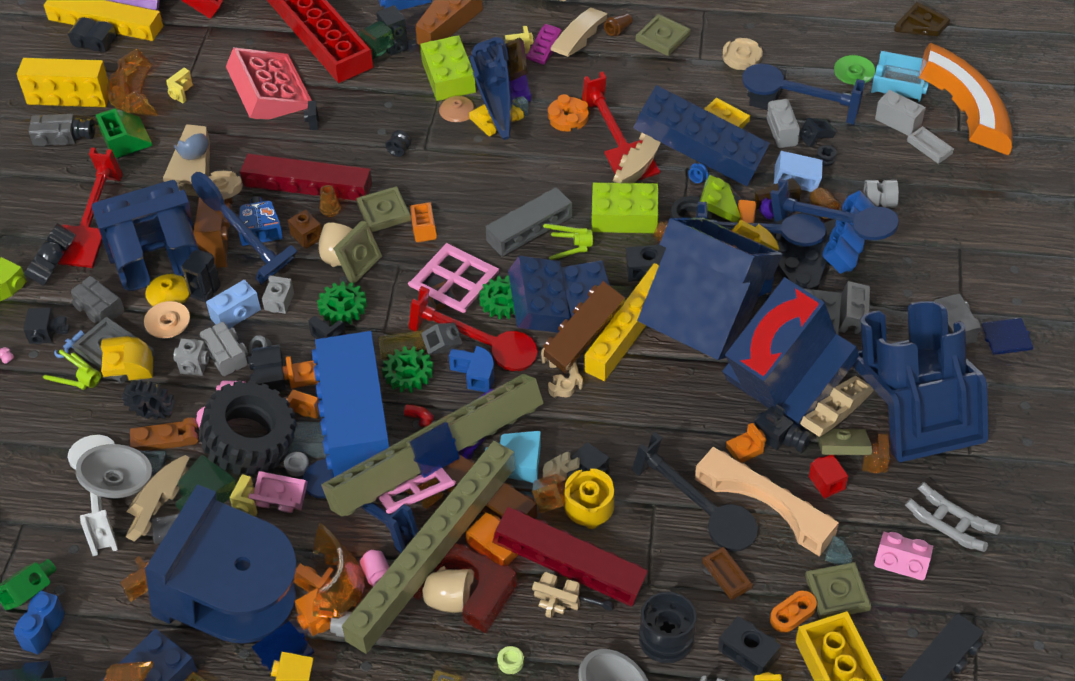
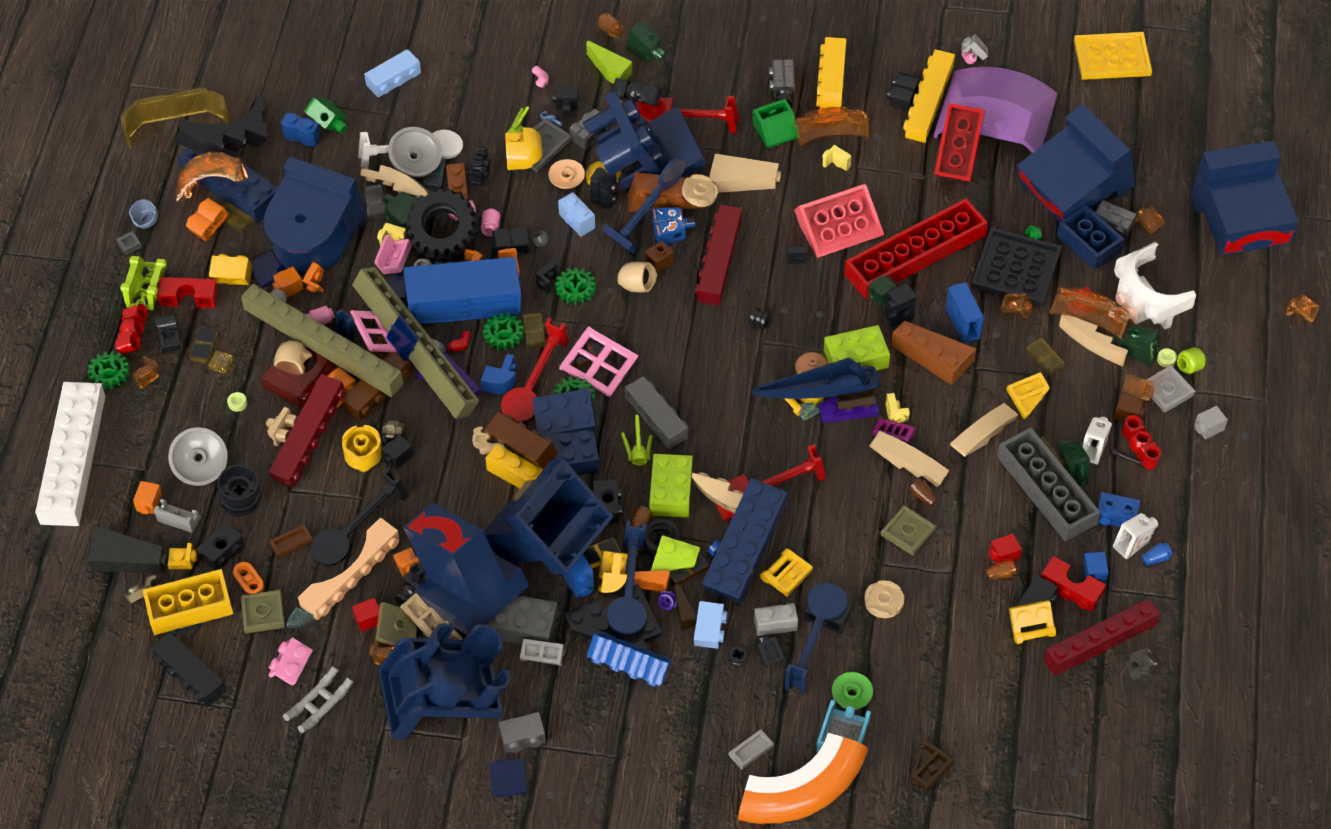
camera: 90 degrees right, 5 degrees up
(191, 357) = (526, 192): light grey brick -> none
(193, 147) = (739, 165): sand blue hair -> none
(224, 348) = (534, 212): light grey brick -> none
(278, 294) = (587, 243): light grey brick -> none
(329, 202) = (688, 271): clear orange cone -> none
(347, 584) = (310, 296): clear orange windscreen -> none
(357, 252) = (622, 289): olive plate -> none
(384, 209) = (682, 311): olive plate -> none
(423, 223) = (661, 345): orange slope -> none
(441, 338) = (527, 350): dark grey brick -> none
(527, 454) = (410, 404): medium azure torso -> none
(548, 493) = (368, 416): clear orange brick -> none
(567, 104) = (792, 442): orange plate -> none
(823, 198) = (672, 645): clear orange brick -> none
(870, 224) = (618, 661): dark blue piece -> none
(882, 193) = (678, 691): light grey wheel -> none
(900, 113) = (788, 722): light grey brick -> none

